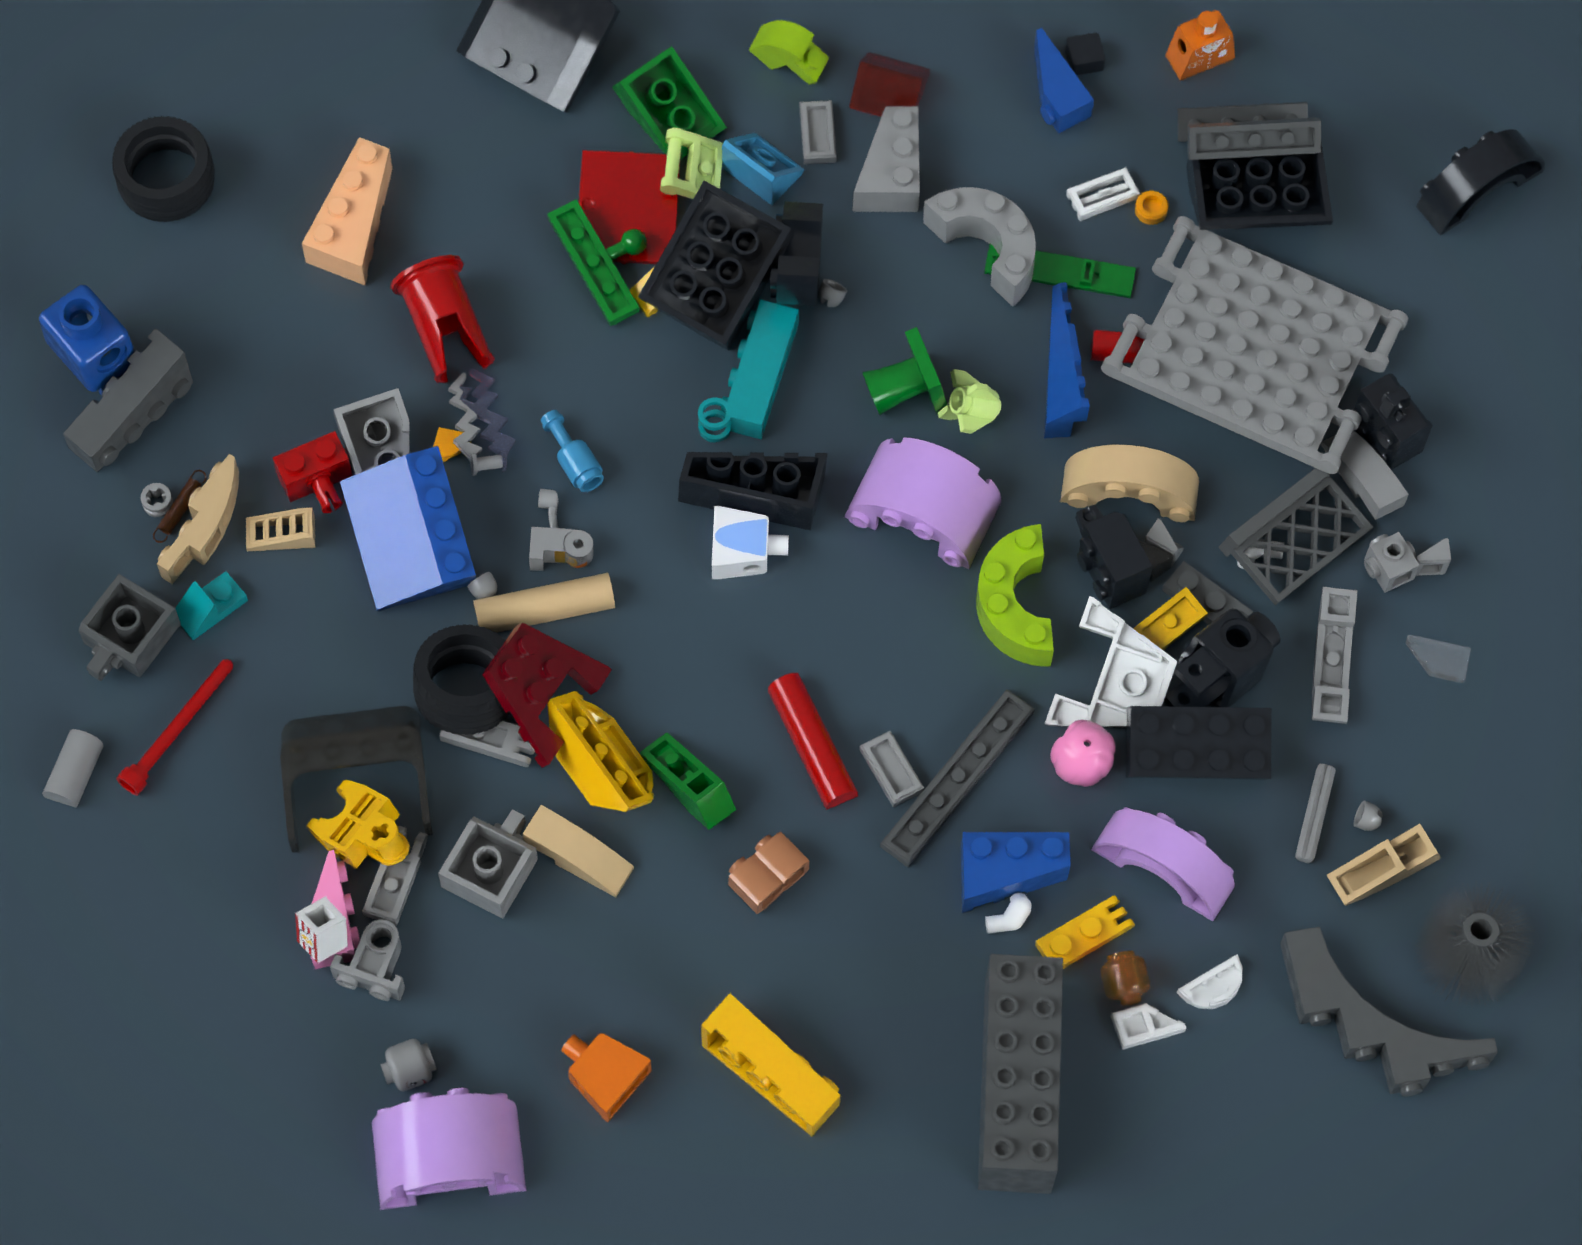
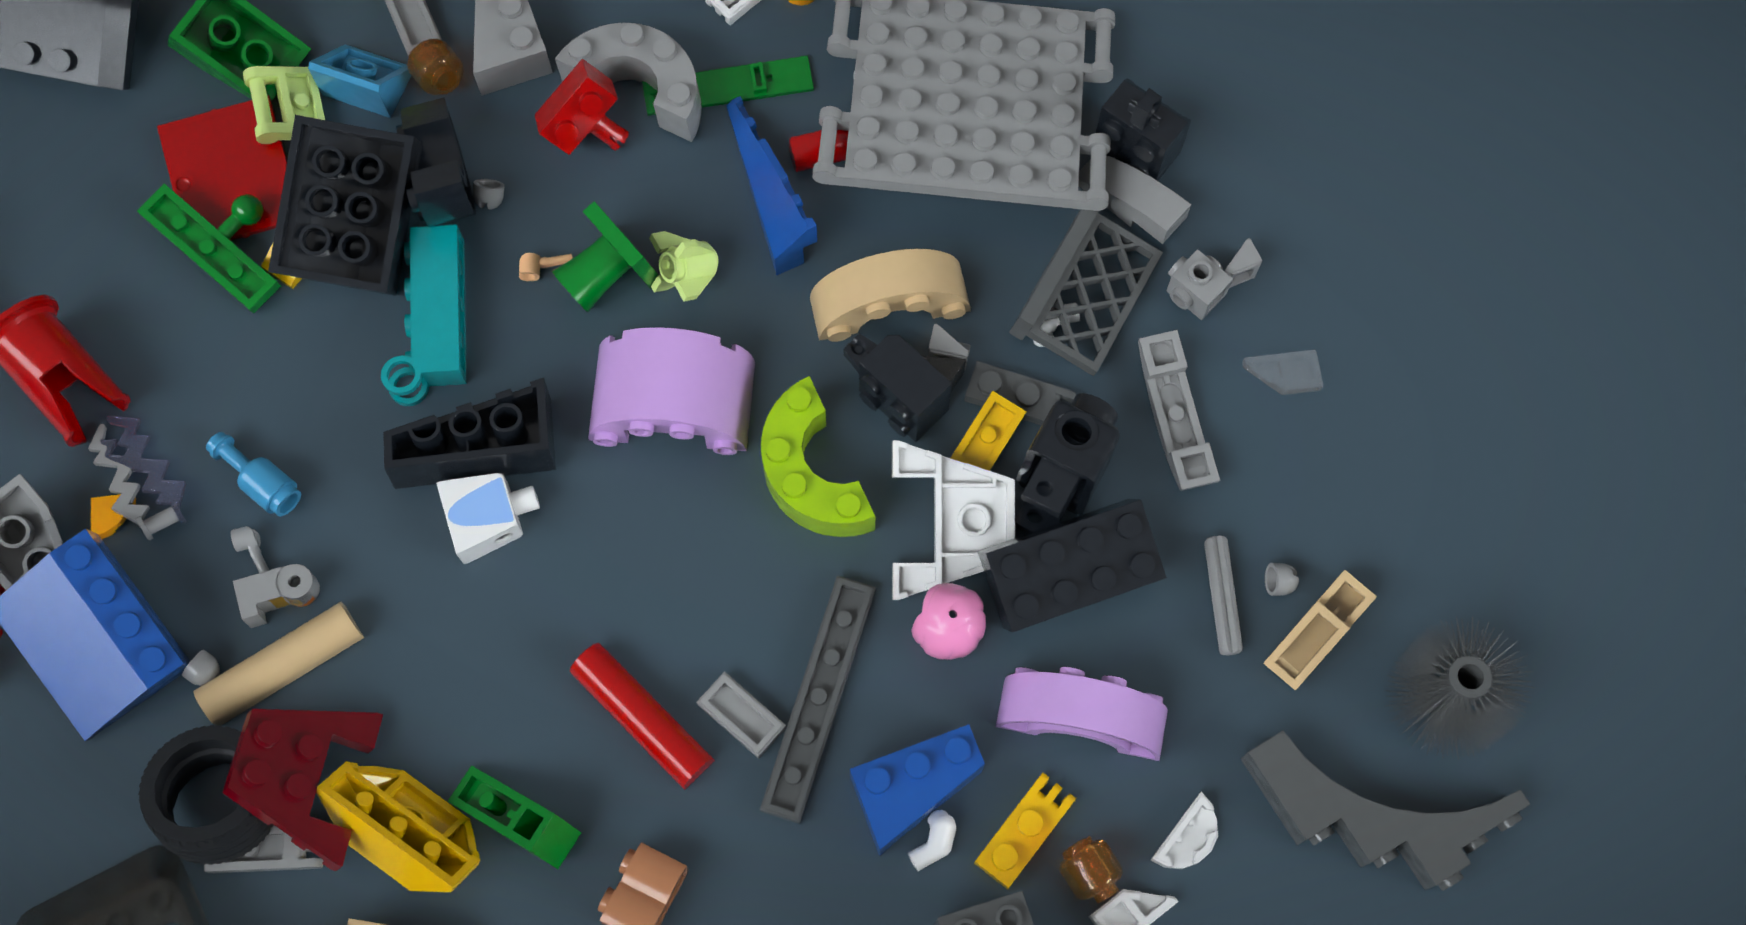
camera: 20 degrees left, 5 degrees up
(823, 176) = (435, 67): none -> clear orange head
(847, 361) = (531, 263): none -> light nougat hand
(930, 250) = (580, 109): none -> red brick

